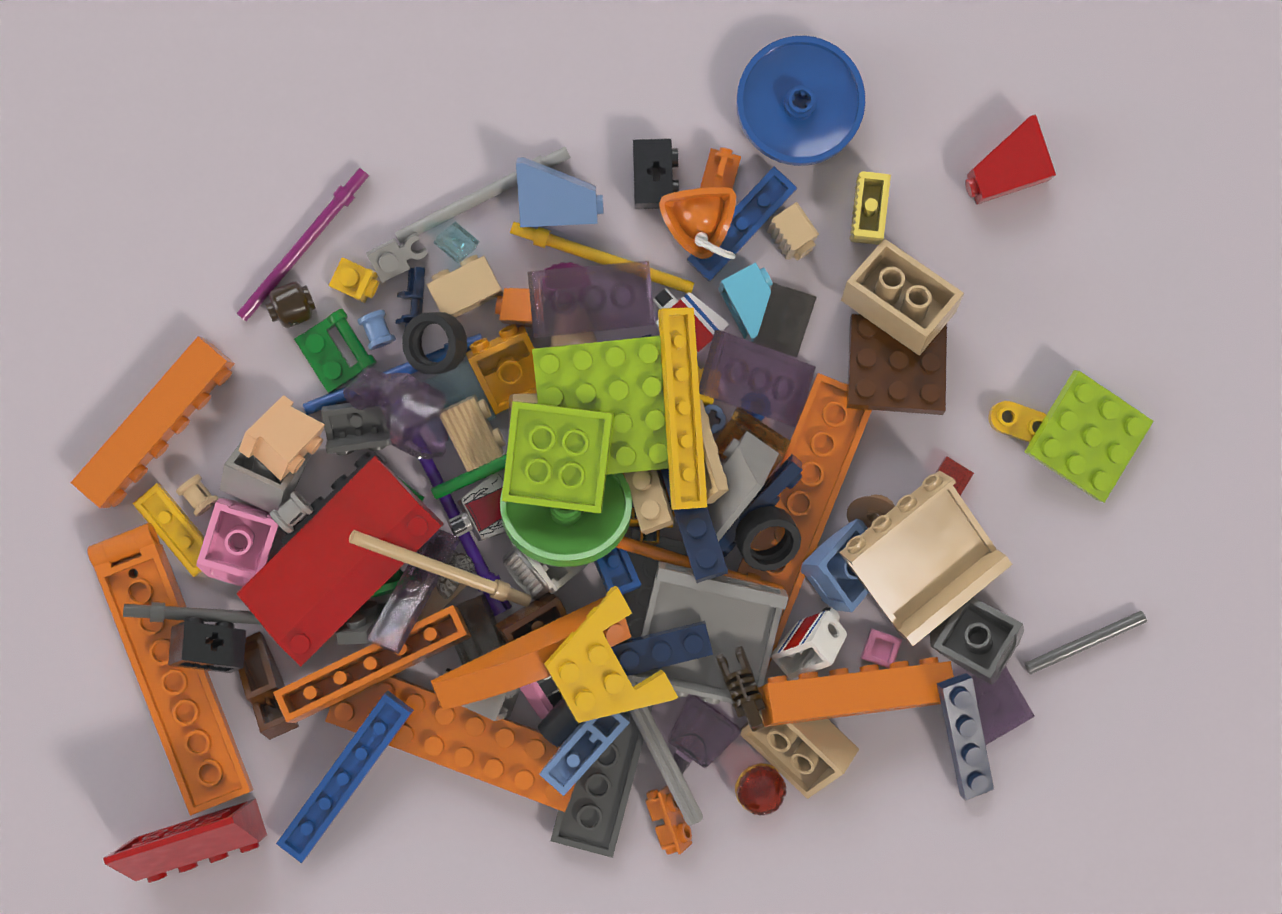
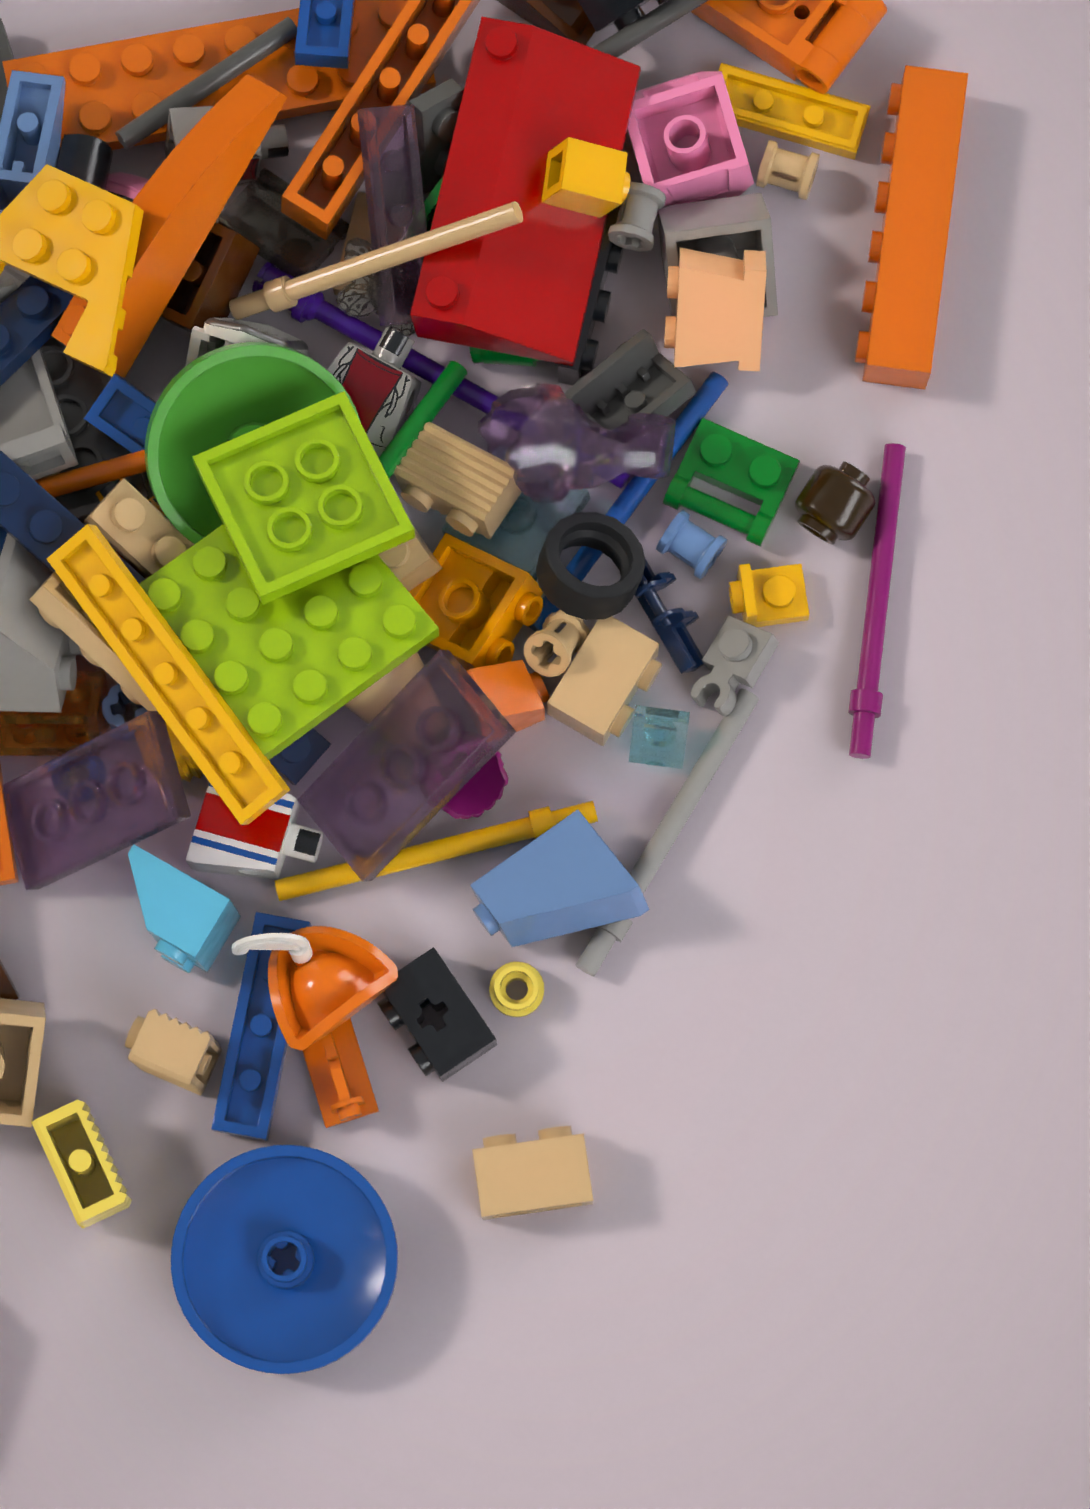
camera: 150 degrees right, 10 degrees down
(304, 543) = (585, 177): none -> yellow brick
(465, 729) = (208, 82): none -> dark grey bar
(474, 314) = (564, 644): none -> tan bush
(602, 155) = (512, 972): none -> light yellow plate
(656, 68) = (532, 1174): none -> tan brick
(785, 320) = (110, 931): clear smoke plate -> none

